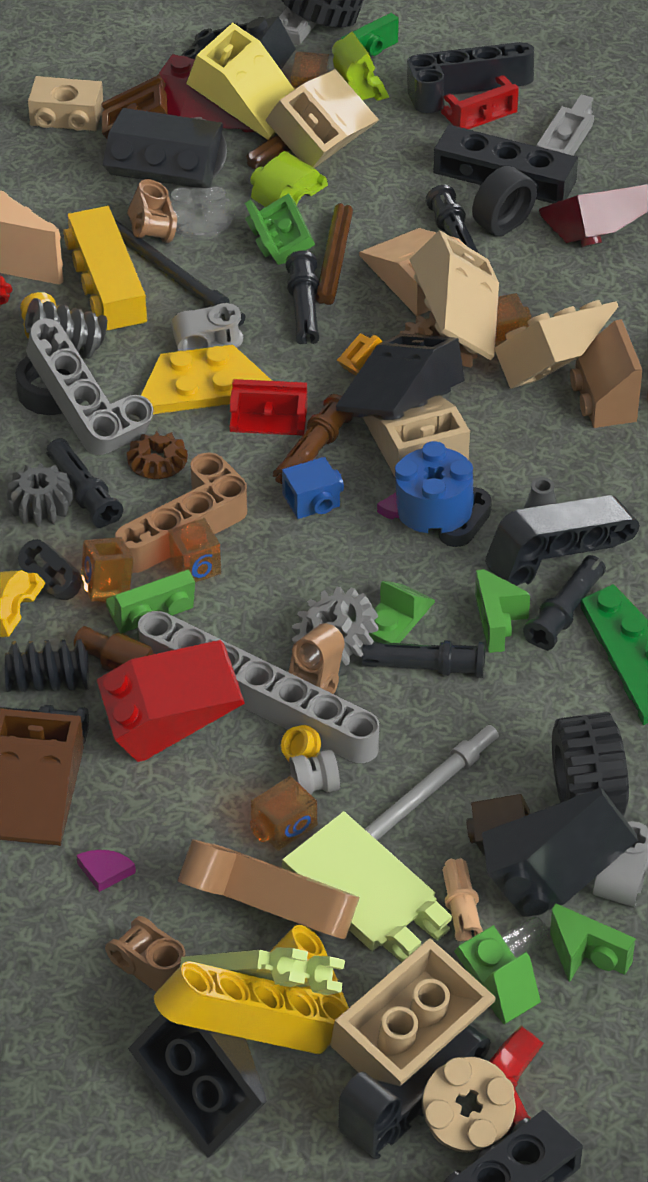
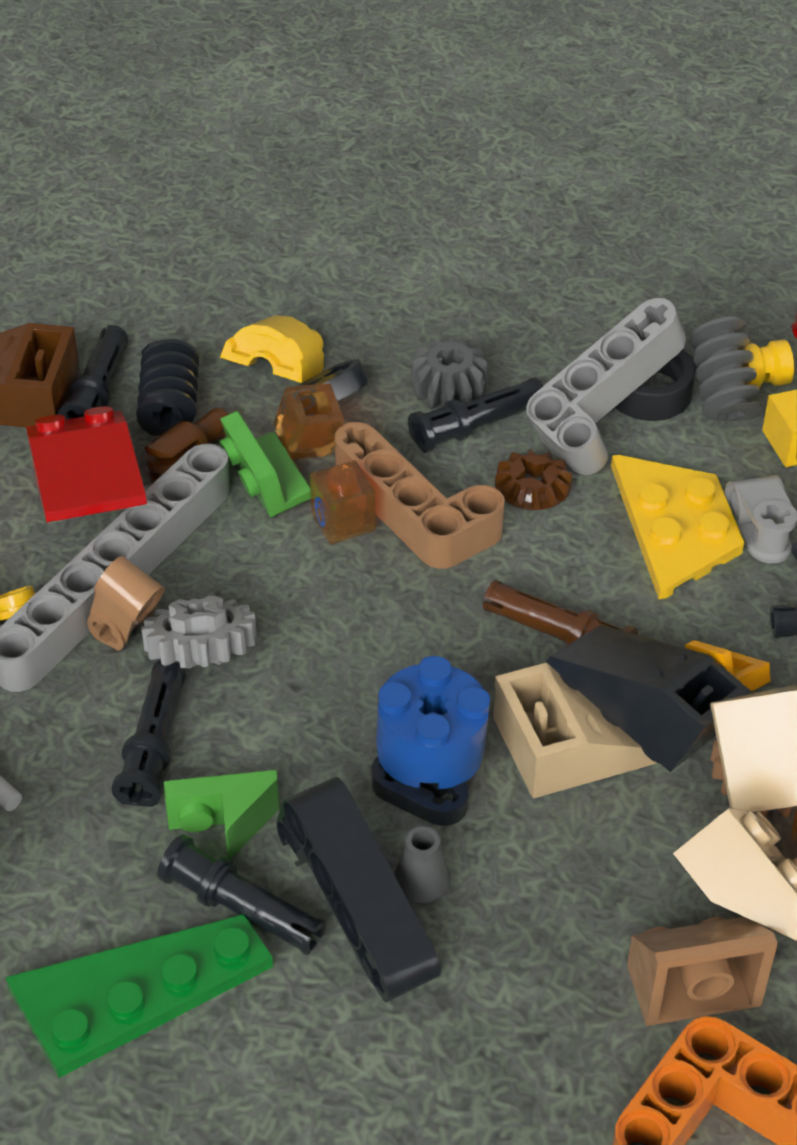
camera: 90 degrees right, 0 degrees up
(268, 407) = (618, 575): red hinge -> none
(312, 487) = (462, 616): blue brick -> none
(398, 611) = (241, 706): bright green slope -> none

